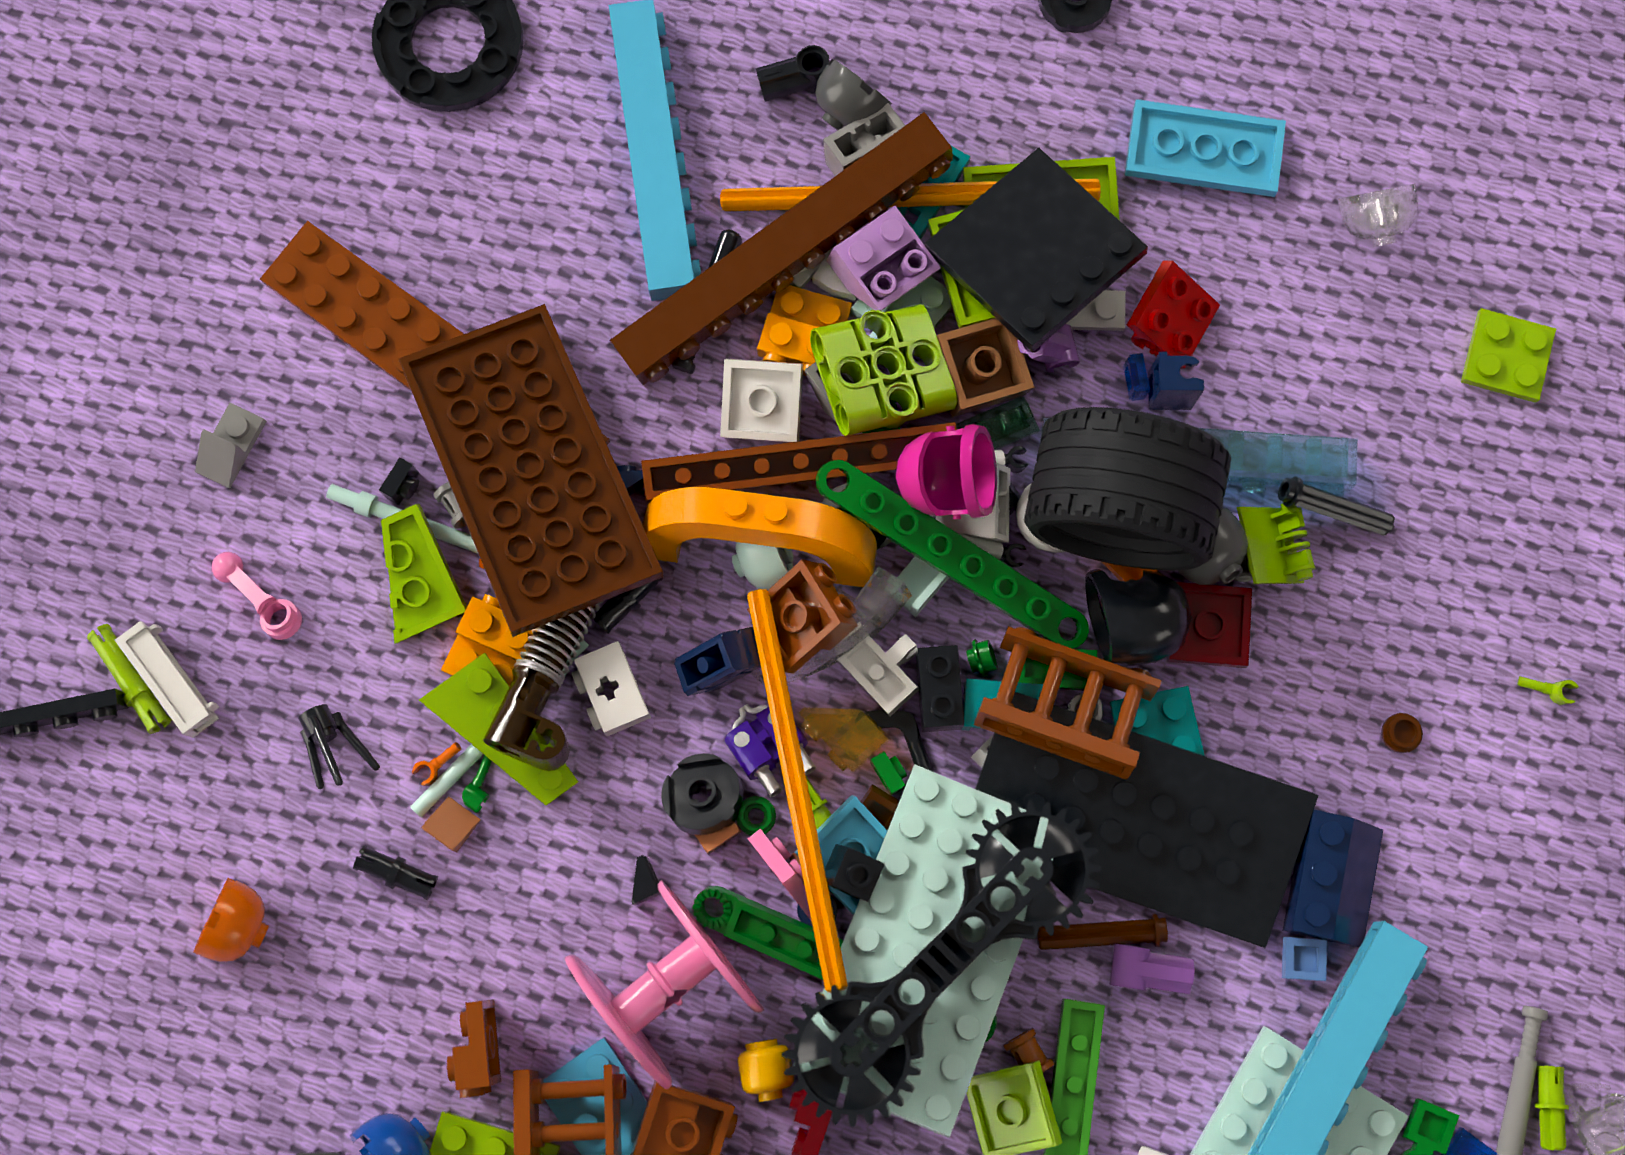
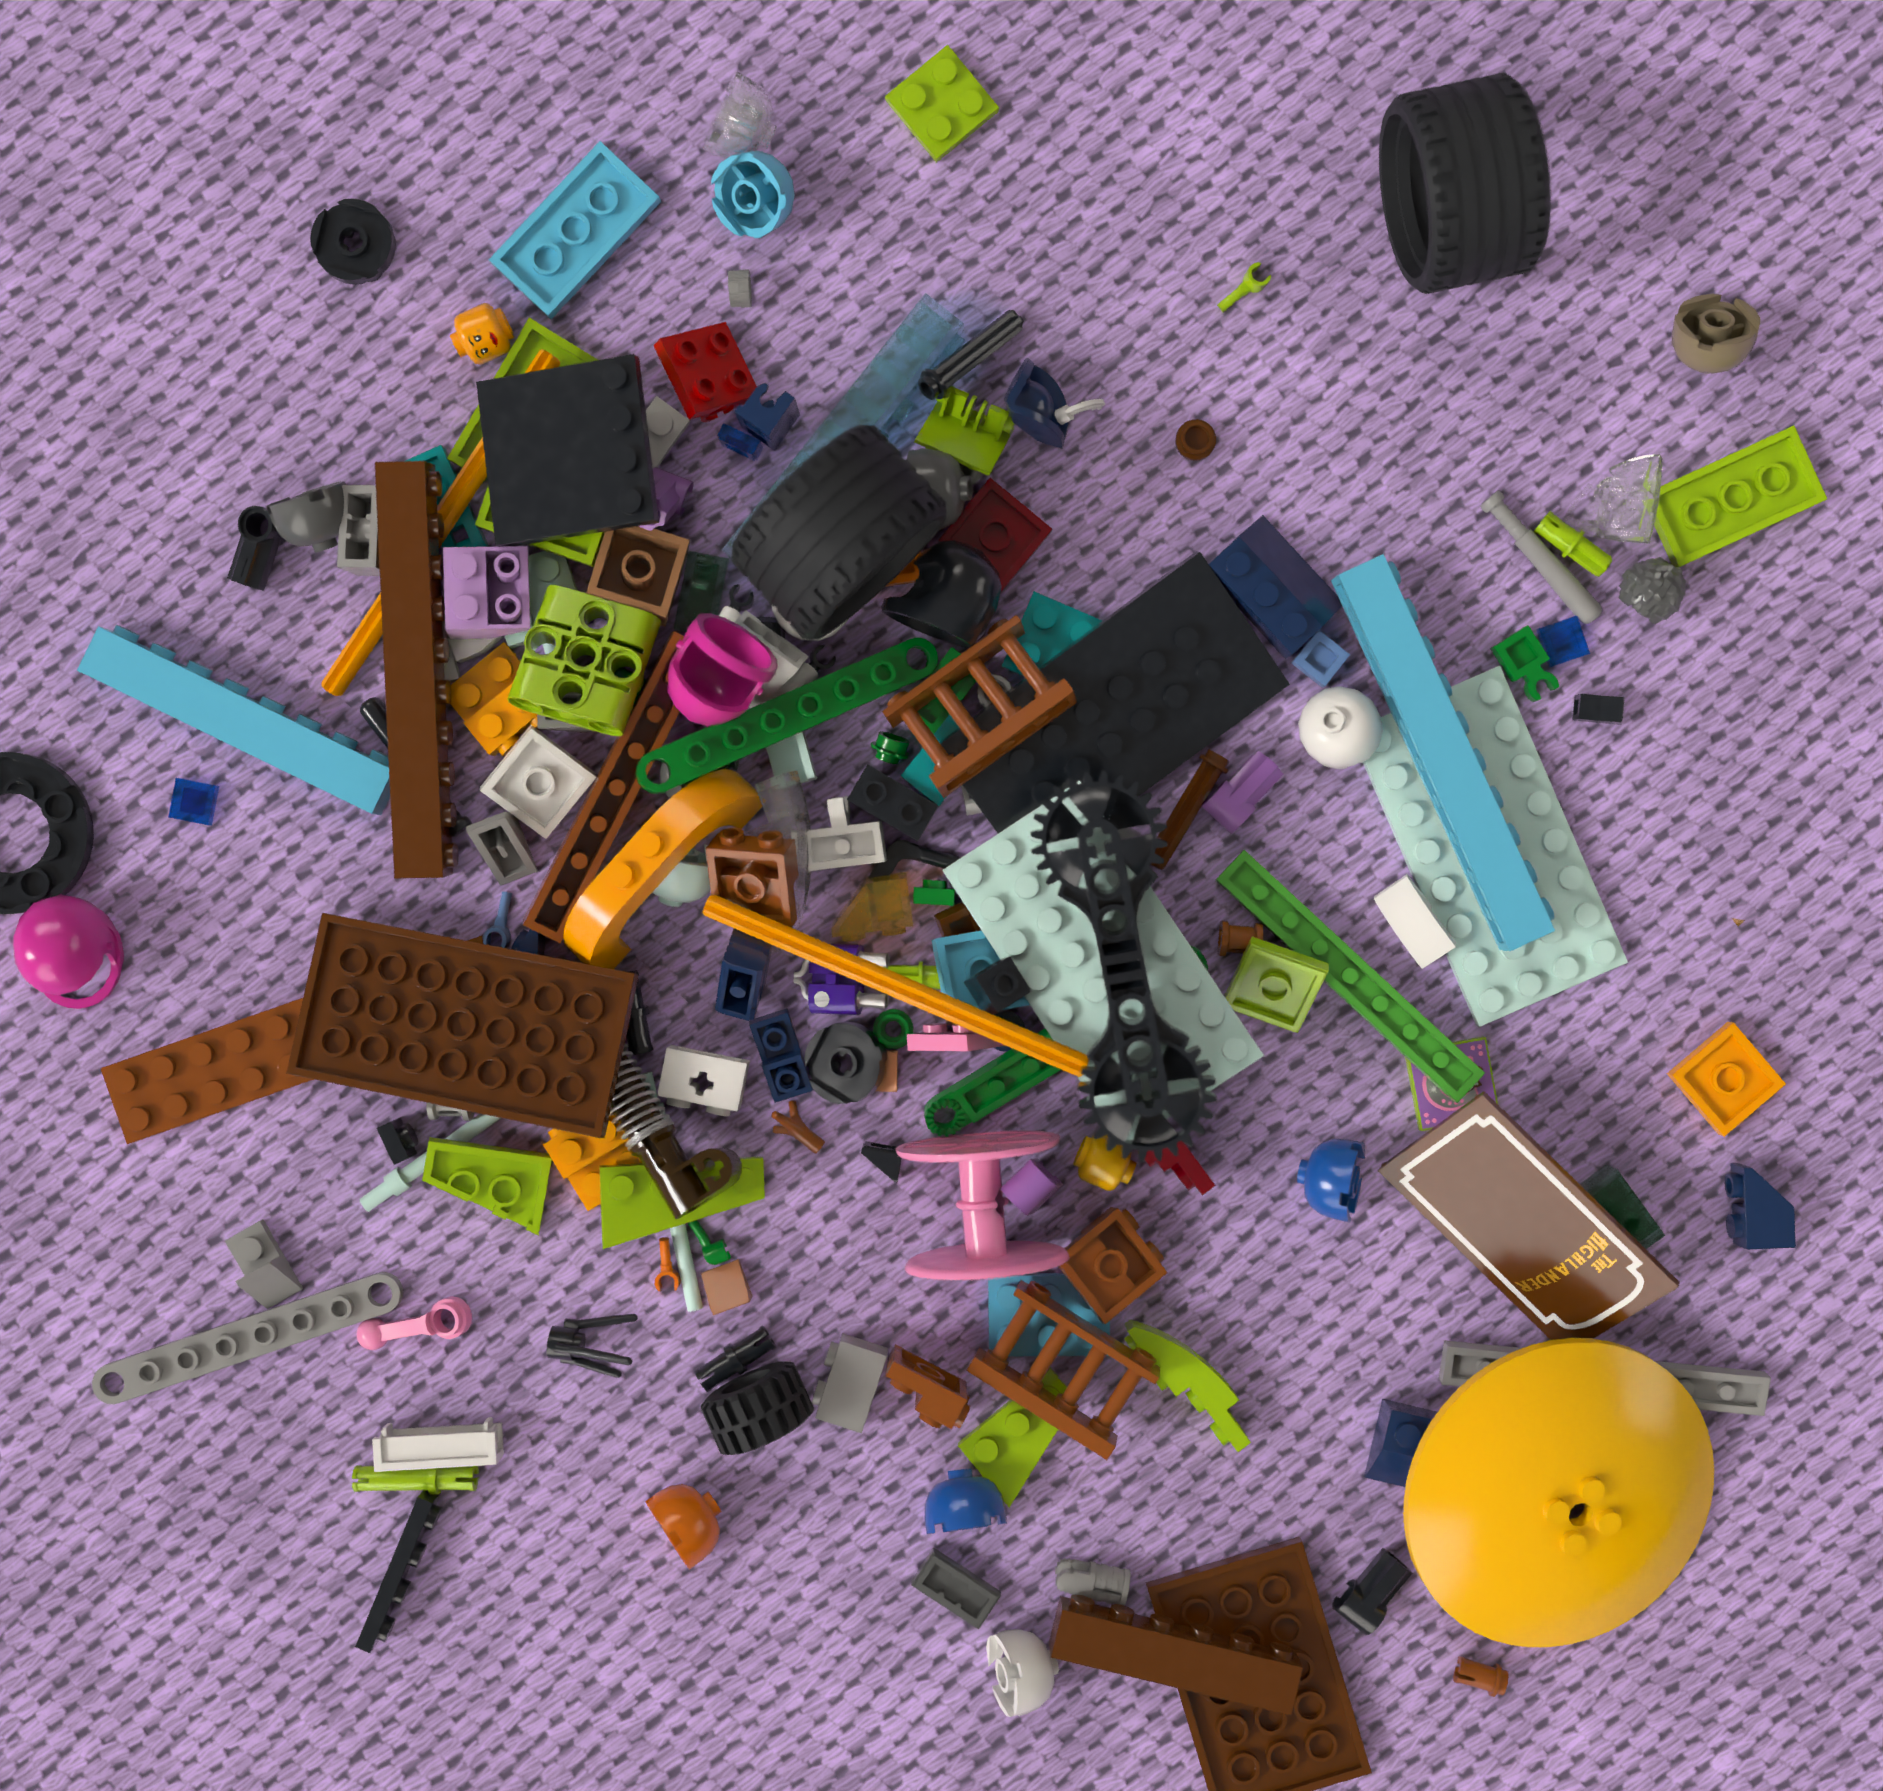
camera: 55 degrees left, 10 degrees up
(162, 472) = (247, 1338): none -> light grey plate
(367, 916) = (757, 1408): none -> black tyre
(386, 129) = (63, 946): none -> dark pink piece
(437, 982) = (850, 1383): none -> light grey brick
(565, 155) = (193, 801): none -> clear blue tile
(621, 792) = (796, 1128): none -> dark orange bar
(630, 446) = (500, 921): none -> medium blue hand
(672, 739) = (780, 1055): none -> dark blue slope
(691, 407) = (503, 847): none -> light grey slope
(704, 1017) = (1031, 1187): none -> medium lavender beam
(1076, 131) = (482, 333): none -> light orange head
(1253, 298) = (739, 288): none -> light grey axle
(1261, 1014) = (1340, 727): none -> white cylinder
(1333, 257) = (752, 193): none -> medium azure cylinder
(1336, 590) = (1040, 405): none -> dark blue hat

